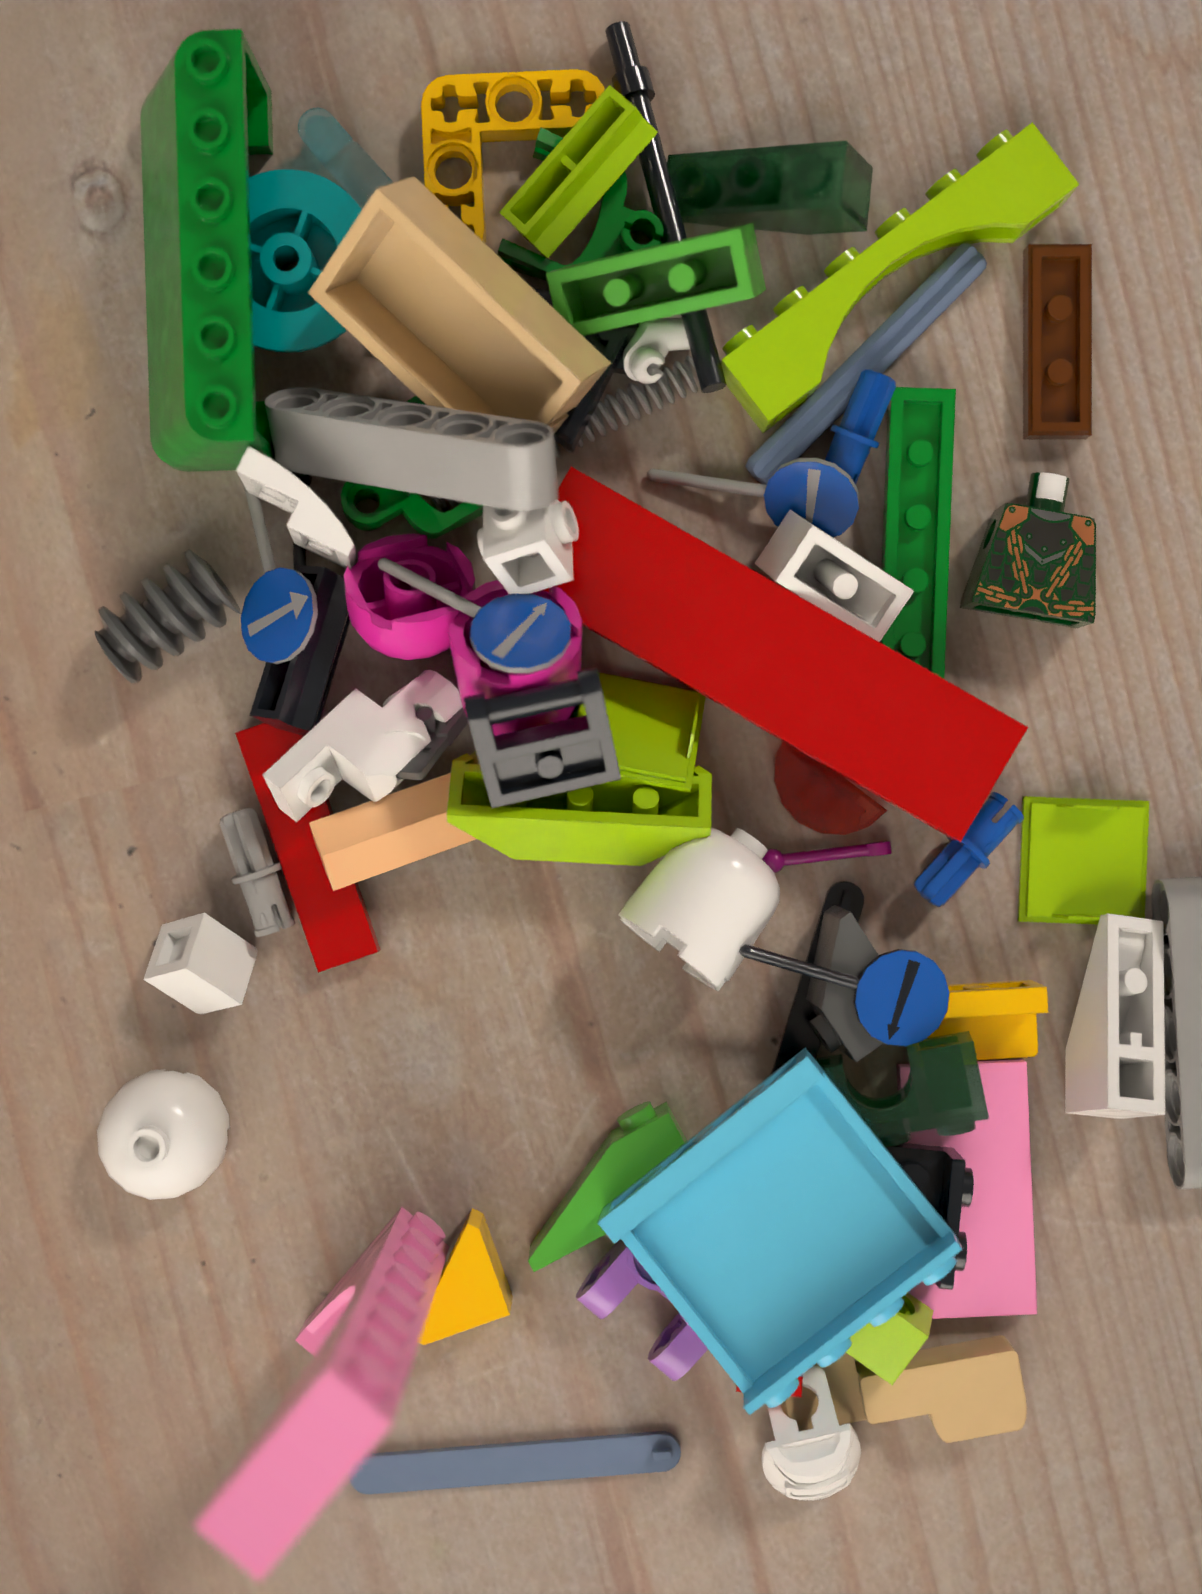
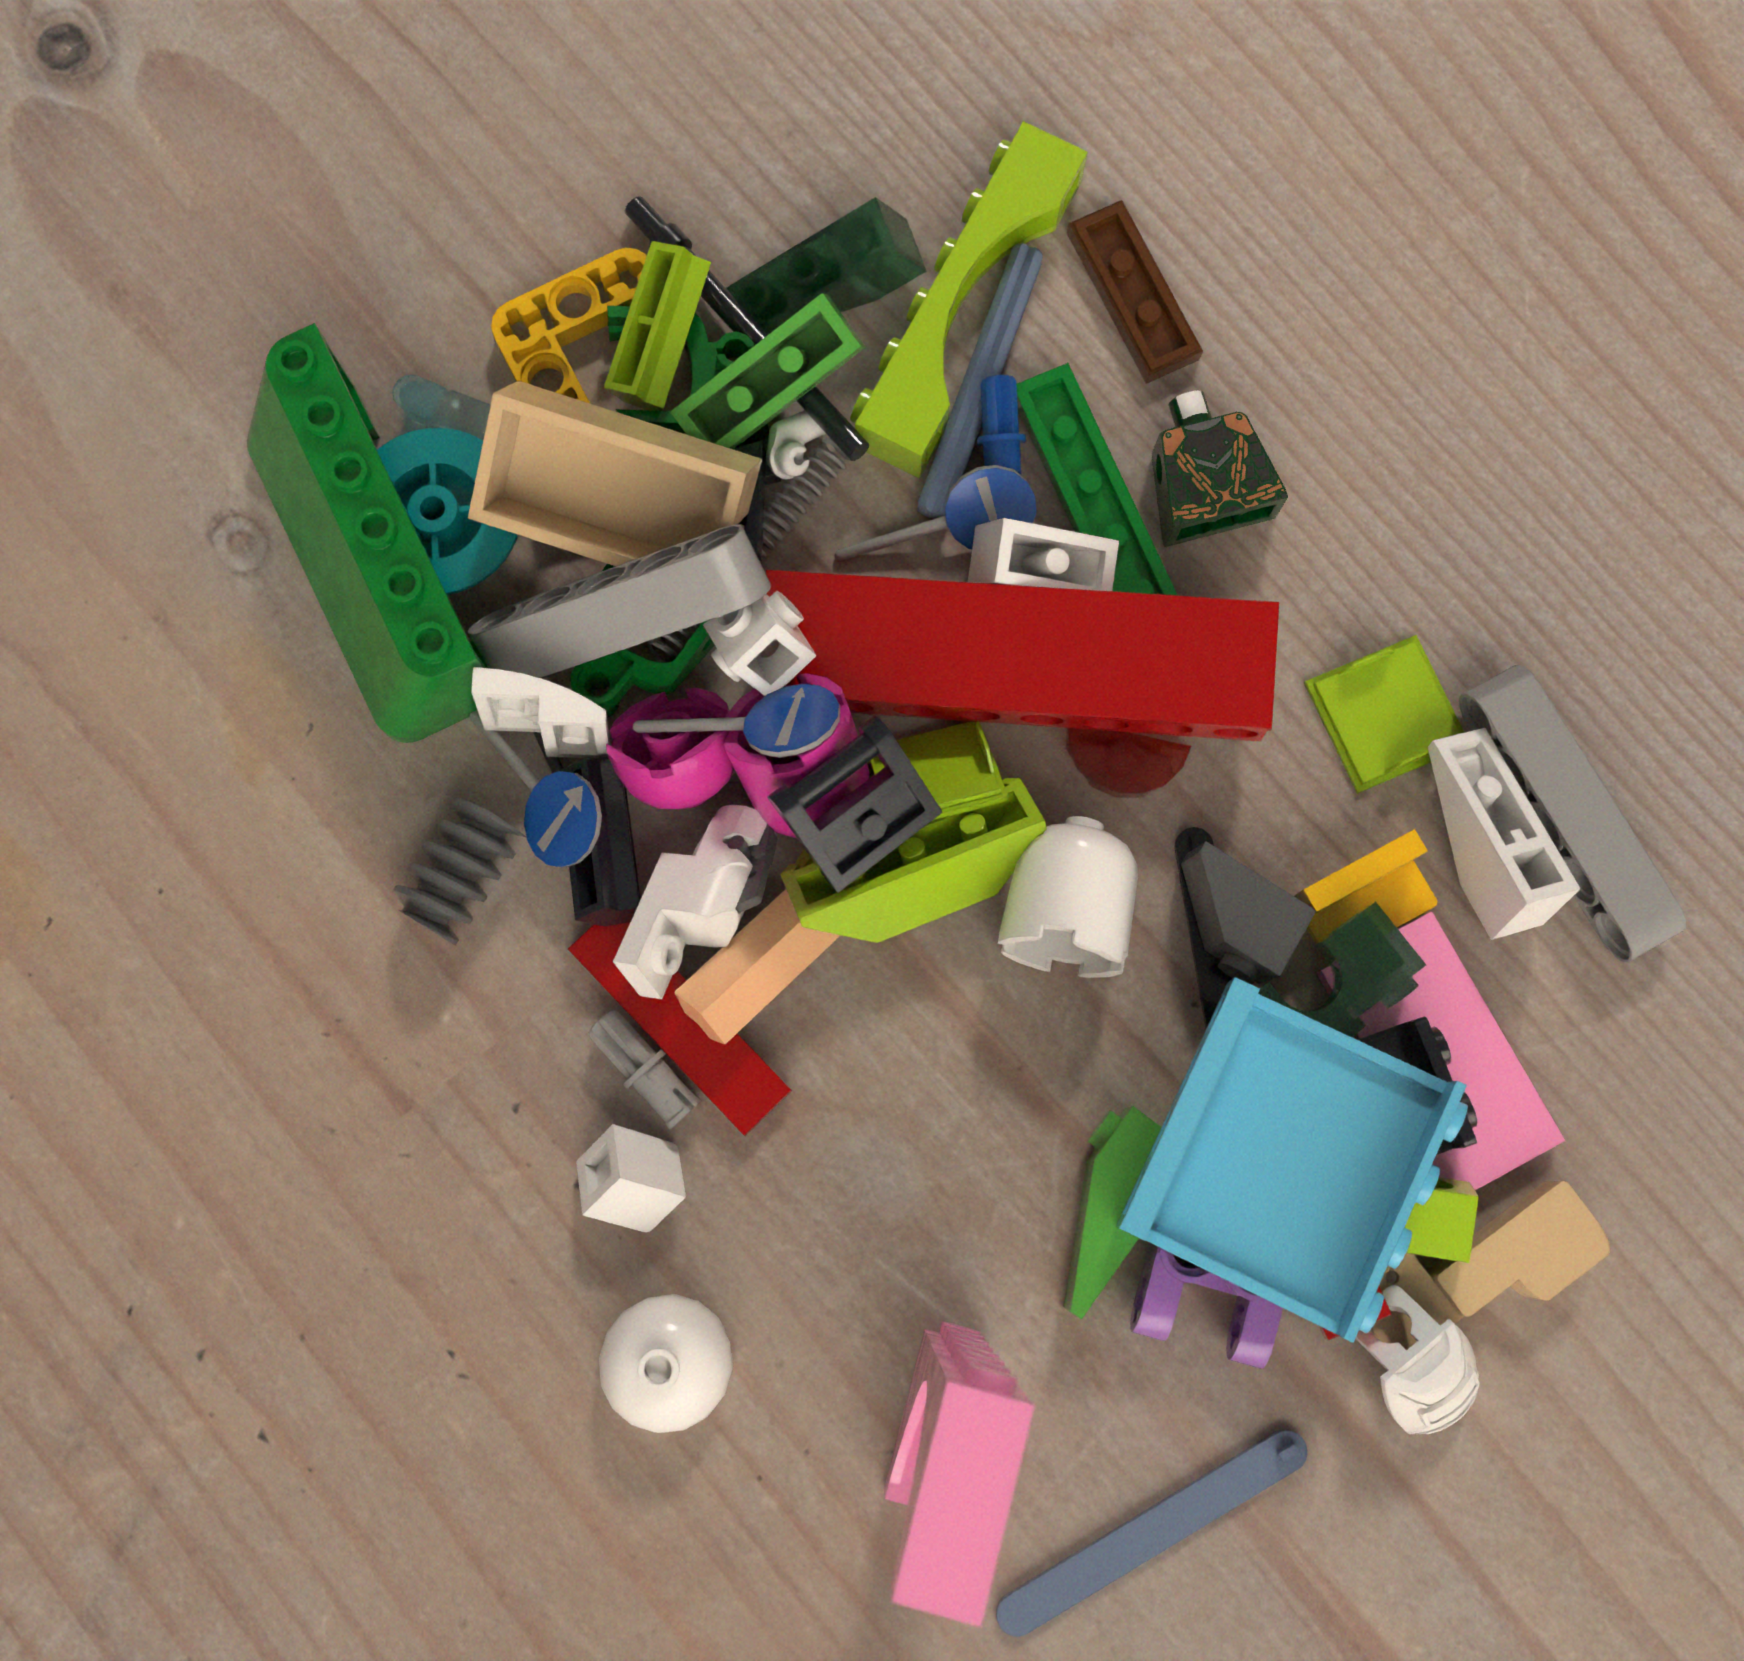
camera: 30 degrees left, 10 degrees down
(470, 1285) = (1032, 1359): yellow slope -> none
(777, 860) = (1192, 790): magenta hinge -> none
(895, 998) = (1285, 896): blue piece -> none
(961, 859) = (1281, 748): blue axle -> none

